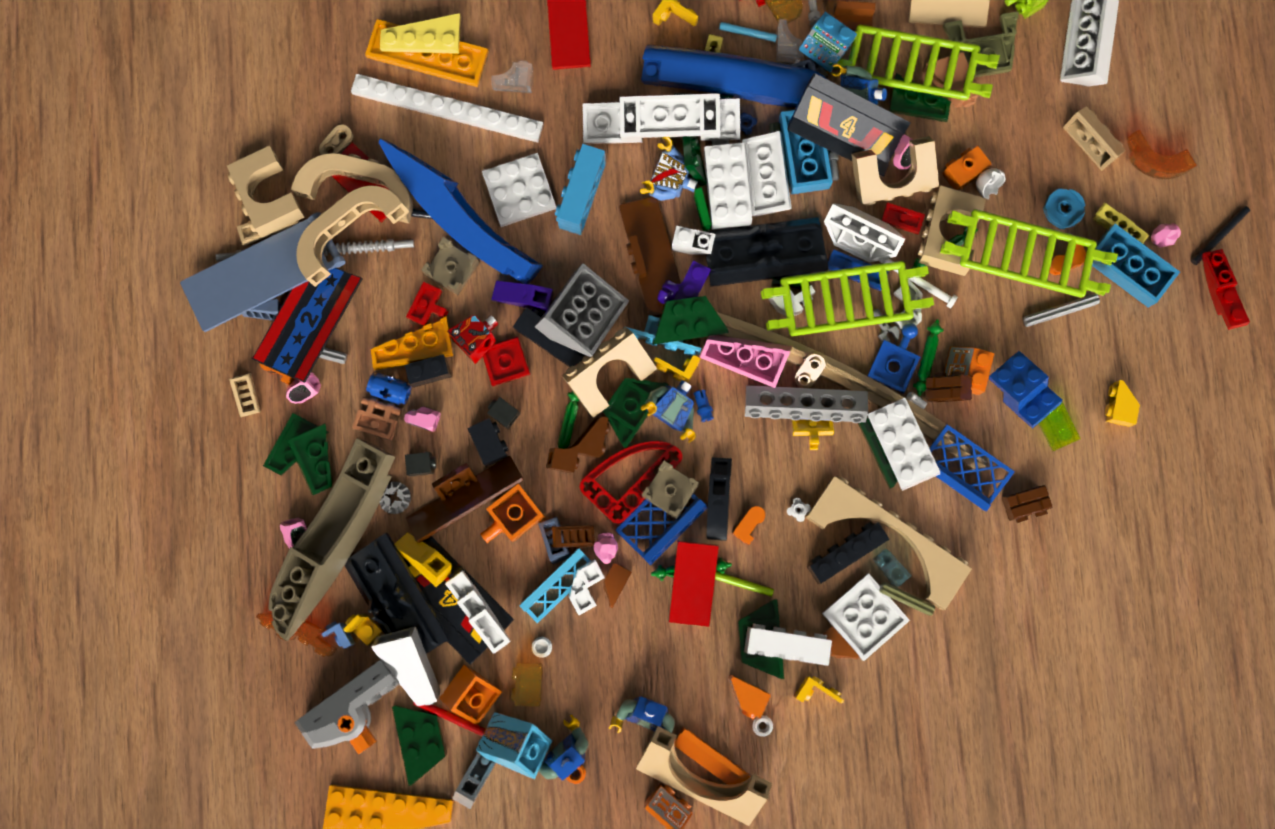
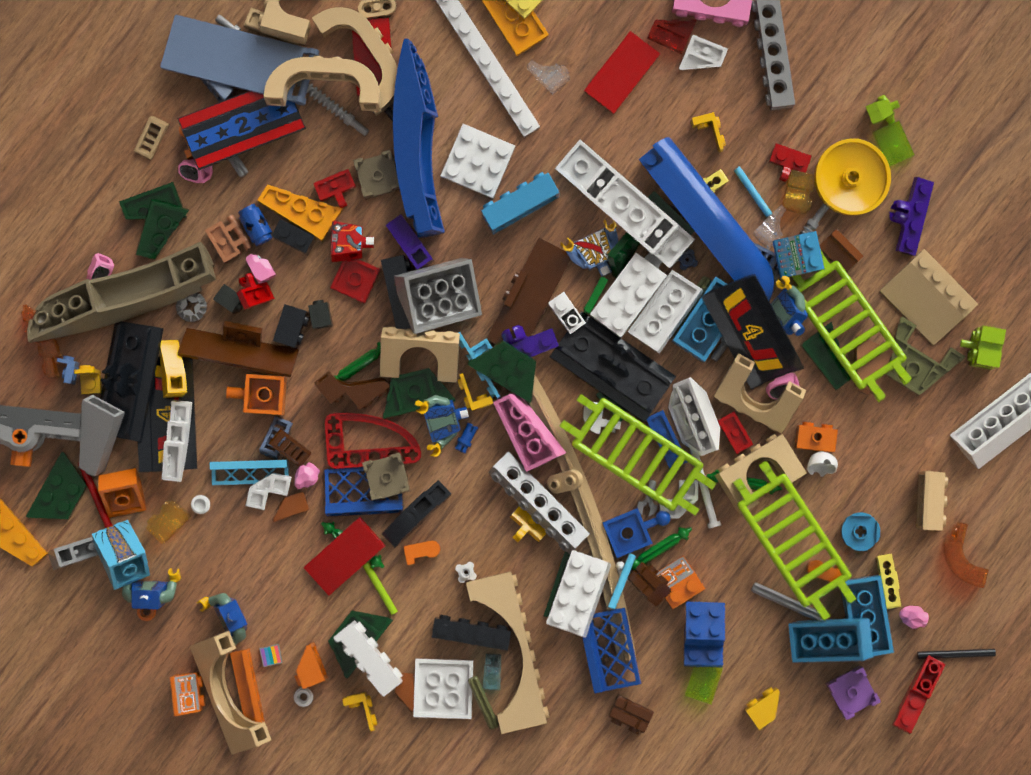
camera: 50 degrees right, 5 degrees up
(434, 443) = (253, 294): none -> red plate
(706, 716) = (271, 655): none -> tile
(925, 406) = (622, 580): none -> medium azure bar
(1126, 304) = (830, 640): none -> dark azure brick
(1174, 333) = (852, 692): none -> medium lavender panel

